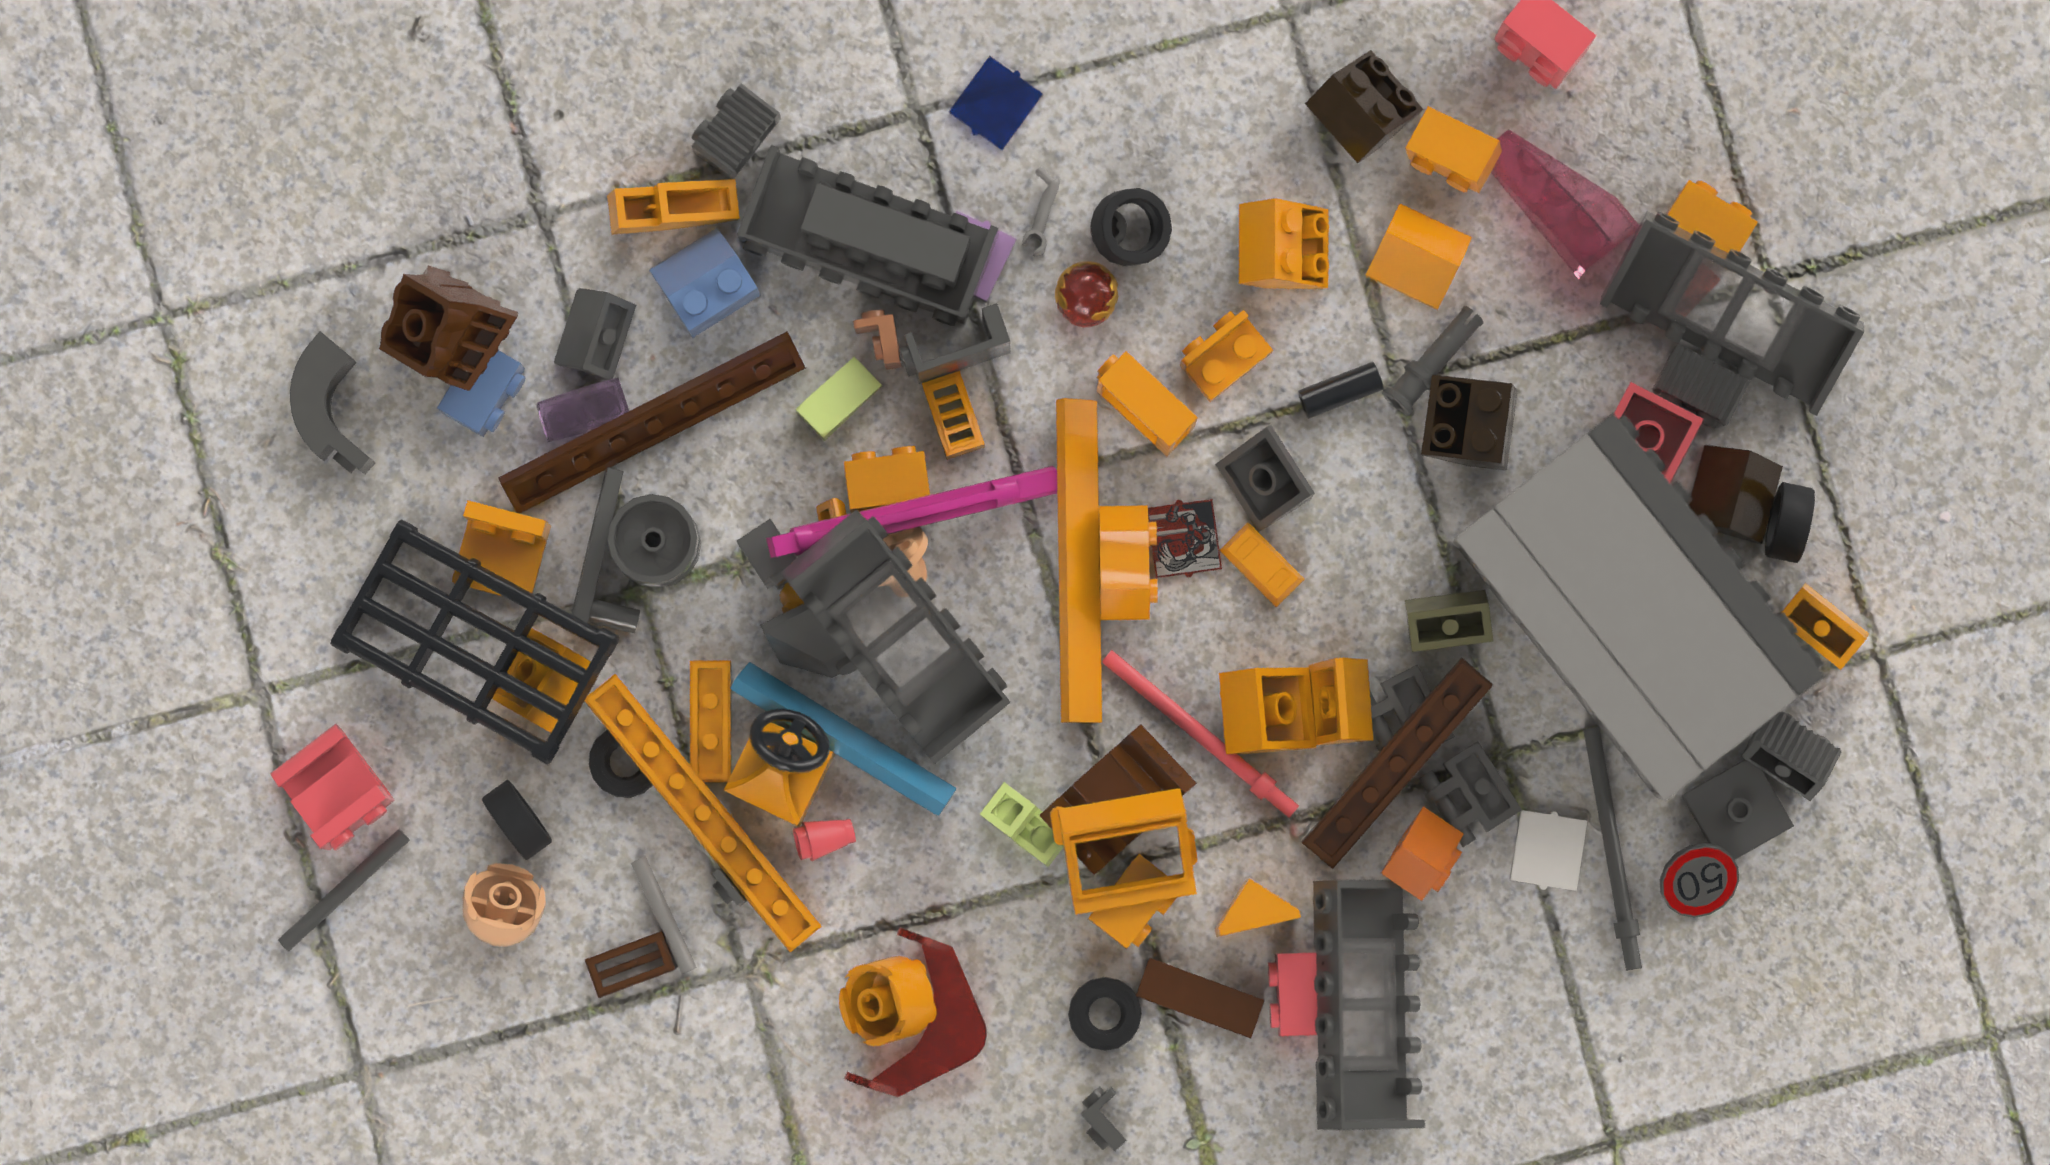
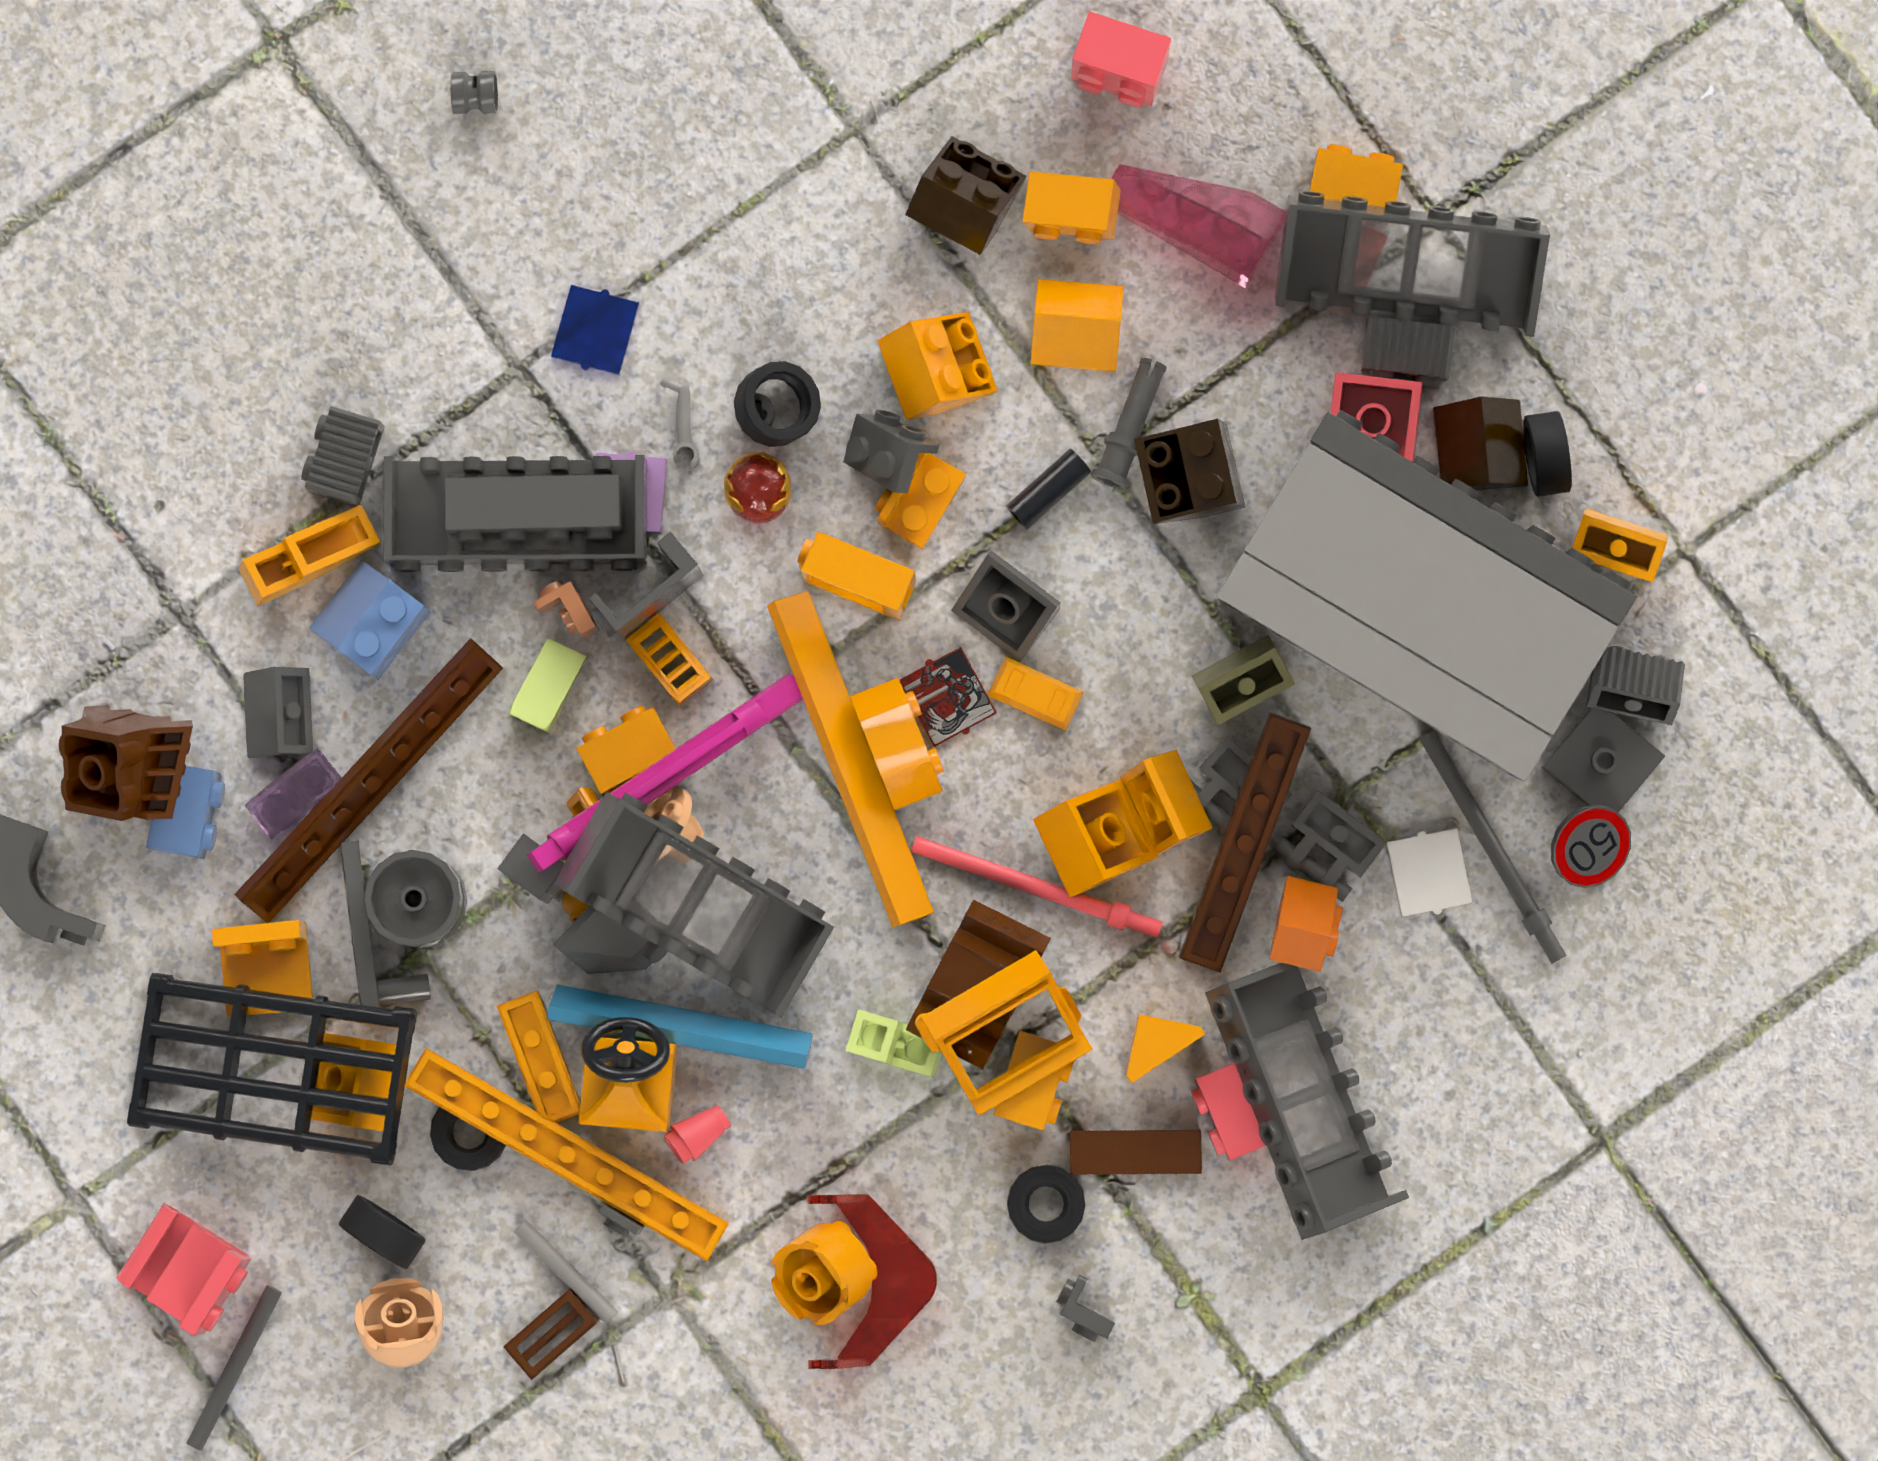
camera: 10 degrees left, 0 degrees up
(1212, 302) = (886, 449): none -> dark grey bracket

